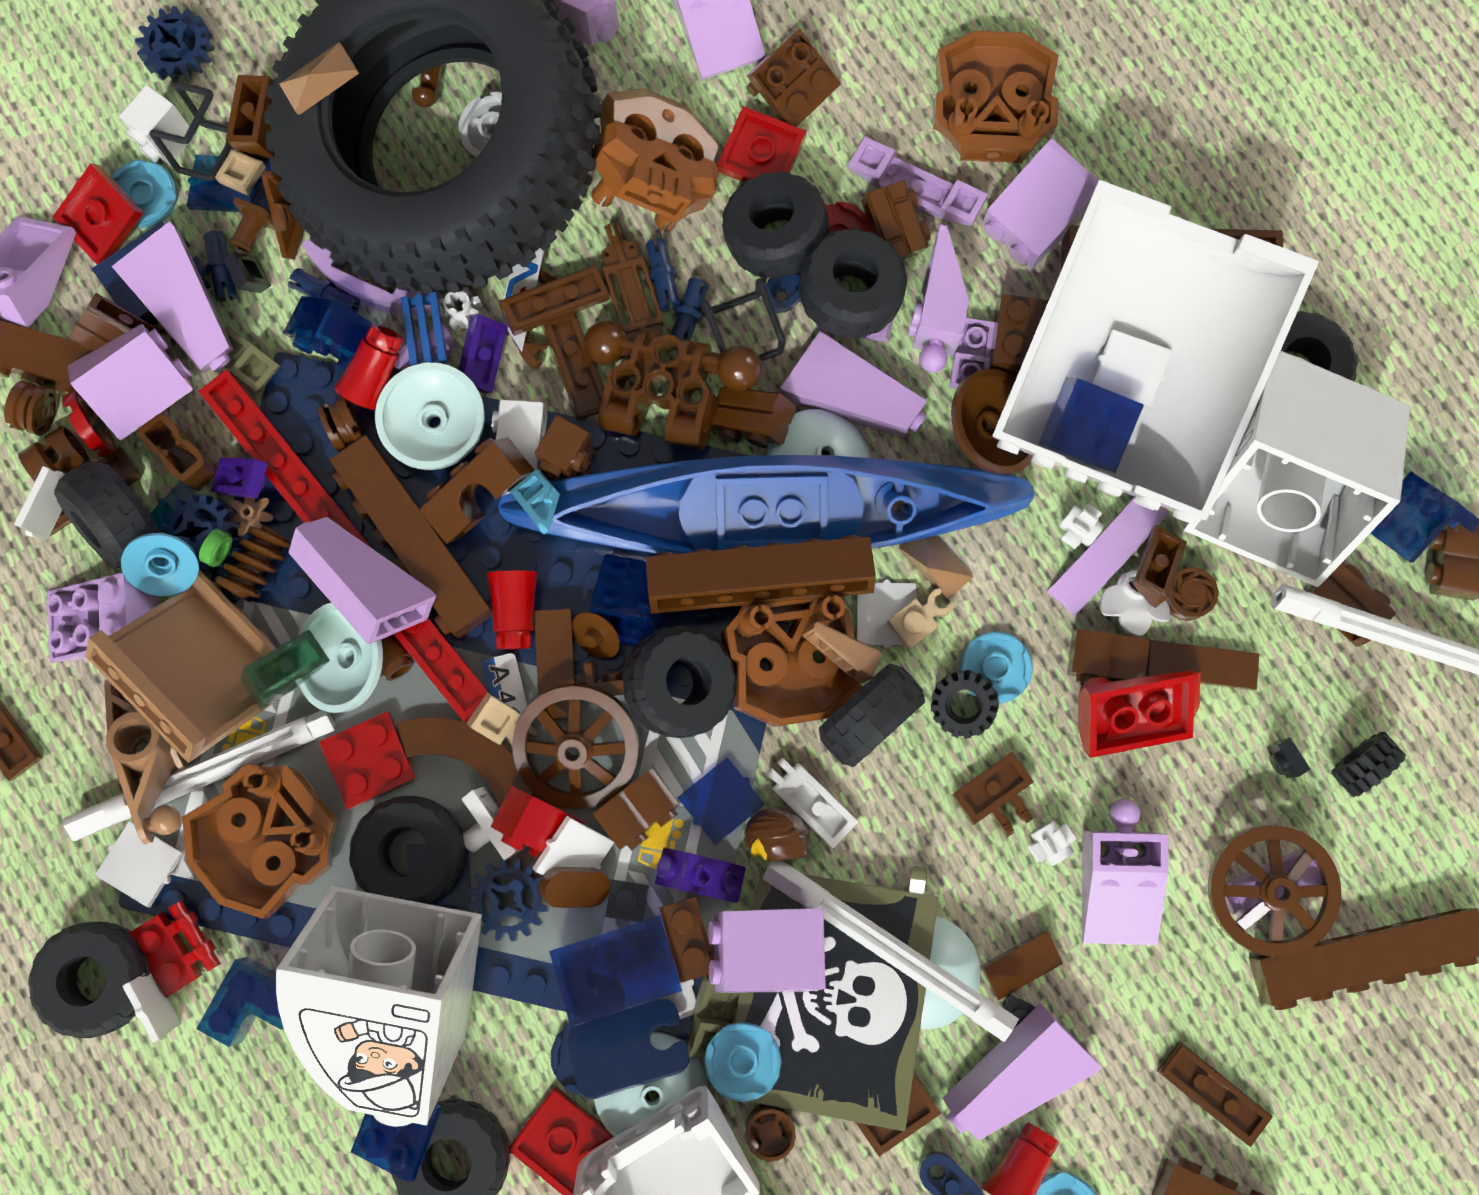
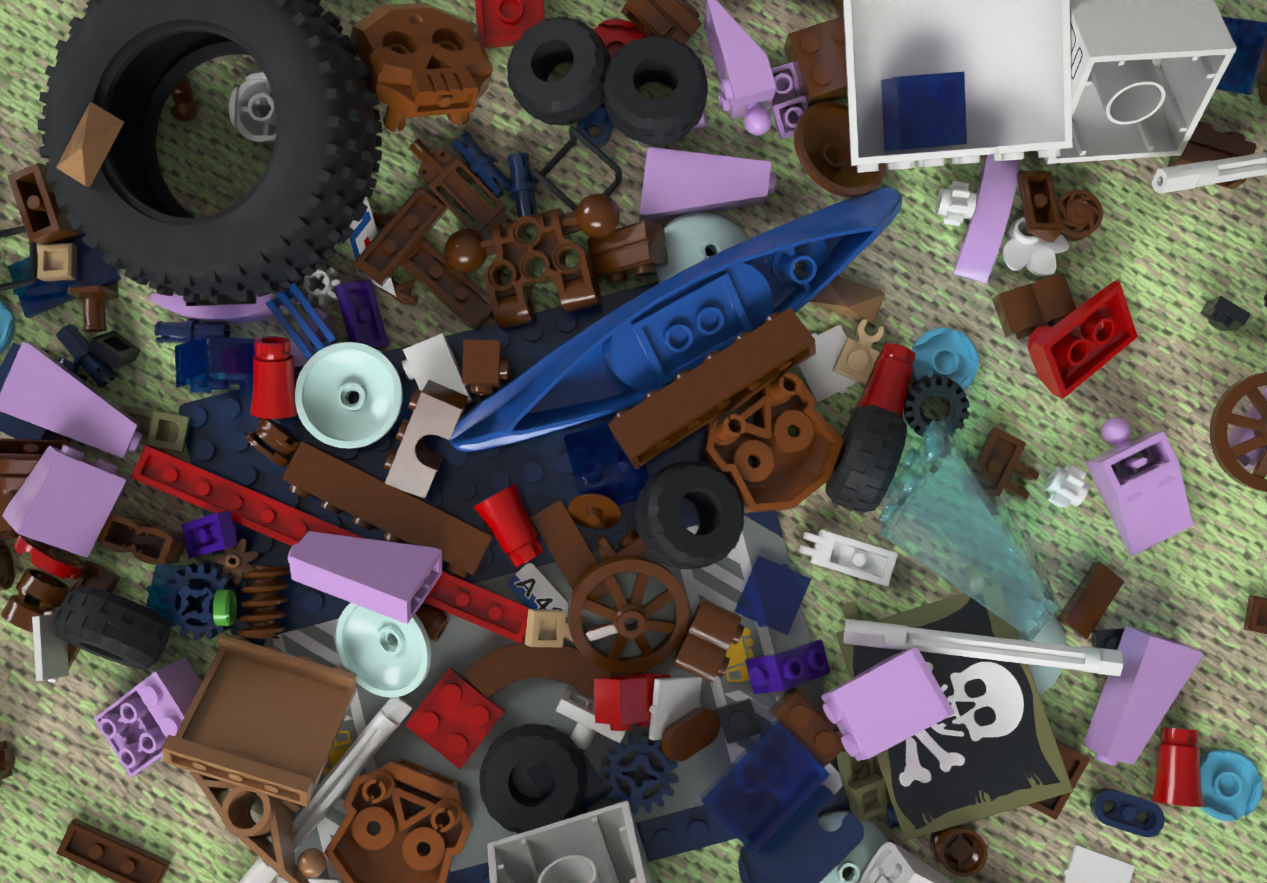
camera: 30 degrees left, 5 degrees up
(155, 575) = (184, 647): medium azure dish -> none
(283, 669) = (343, 681): clear green slope -> none
(286, 226) = (126, 290): reddish brown tile -> none
(537, 499) = (485, 421): medium azure tile -> none
(743, 1061) = (908, 804): medium azure tile -> none
(776, 835) = (836, 600): reddish brown hair -> none
(846, 652) = (823, 417): medium nougat slope -> none
(928, 825) = (961, 529): none -> clear light blue windscreen
(935, 656) = (889, 379): none -> red plant
(1132, 367) = (933, 43): white piece -> none
(1216, 665) = (1126, 265): reddish brown tile -> none

